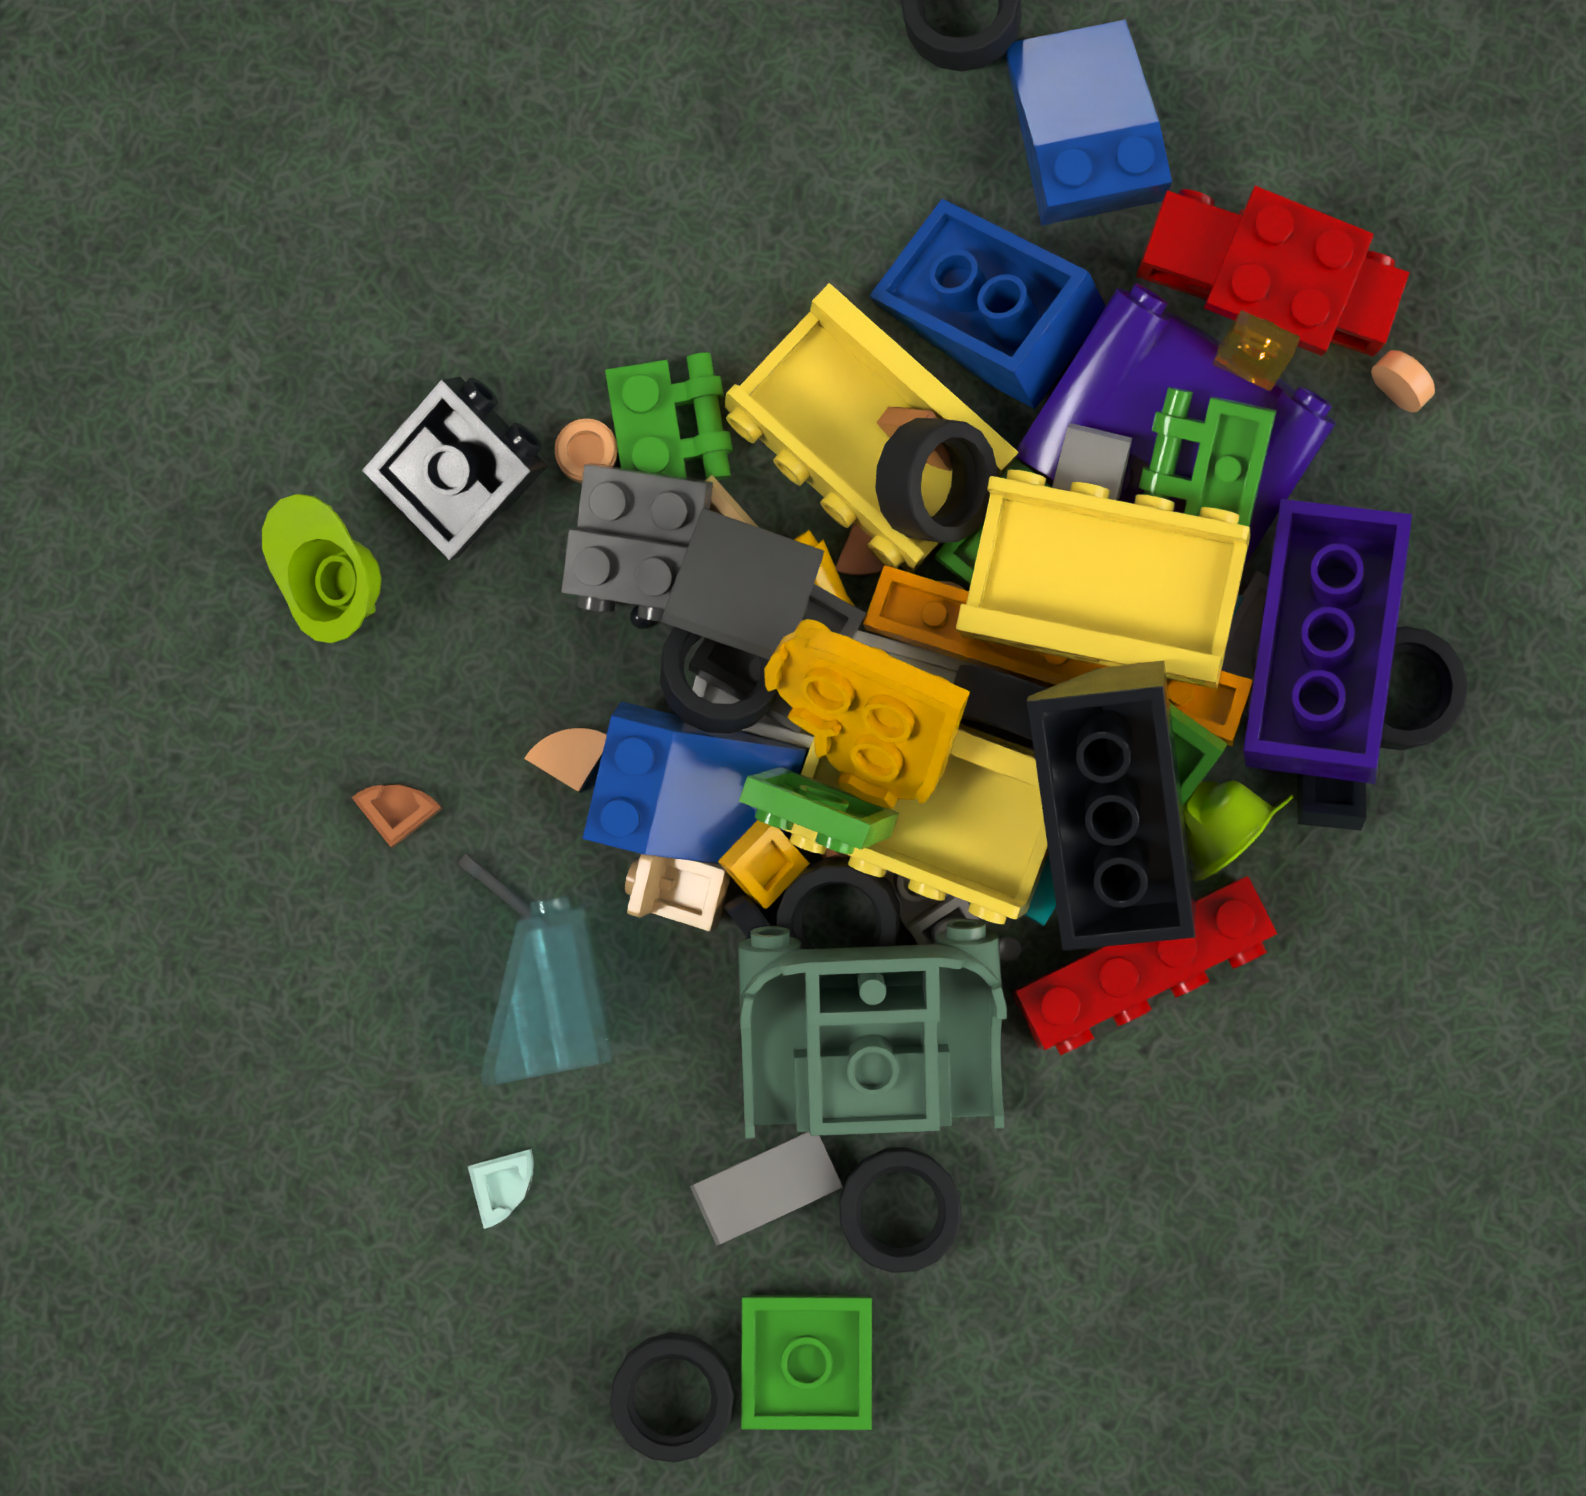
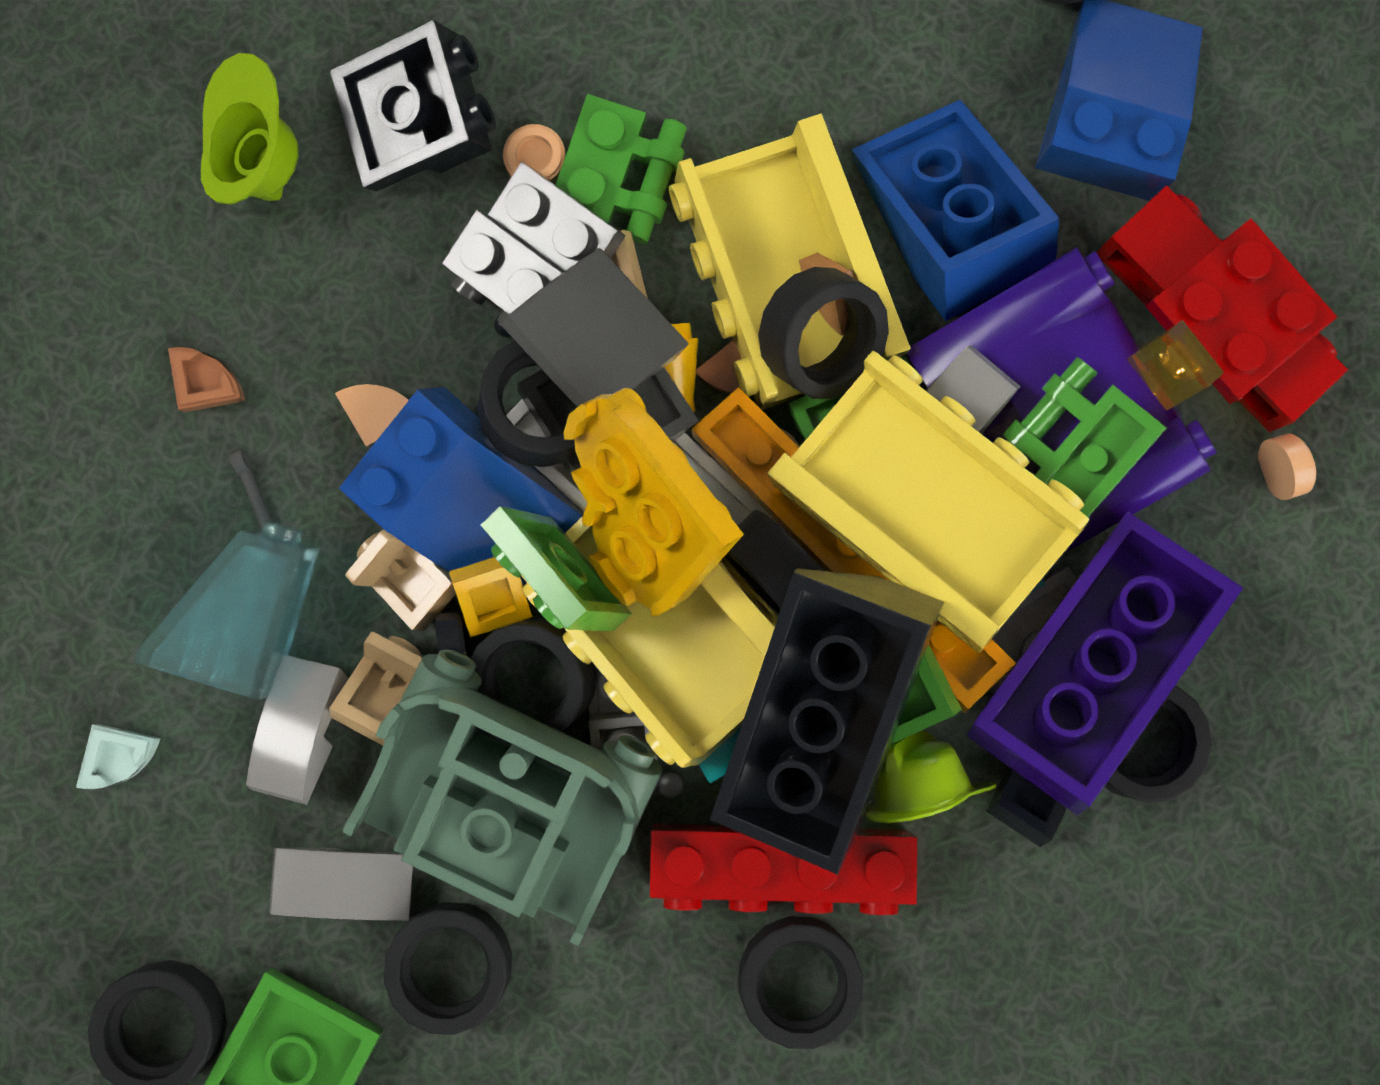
camera: 25 degrees right, 0 degrees up
(650, 1073) = (291, 730): none -> light grey slope
(708, 997) = (376, 684): none -> tan bracket
(1262, 1054) = (819, 1029): none -> black tyre

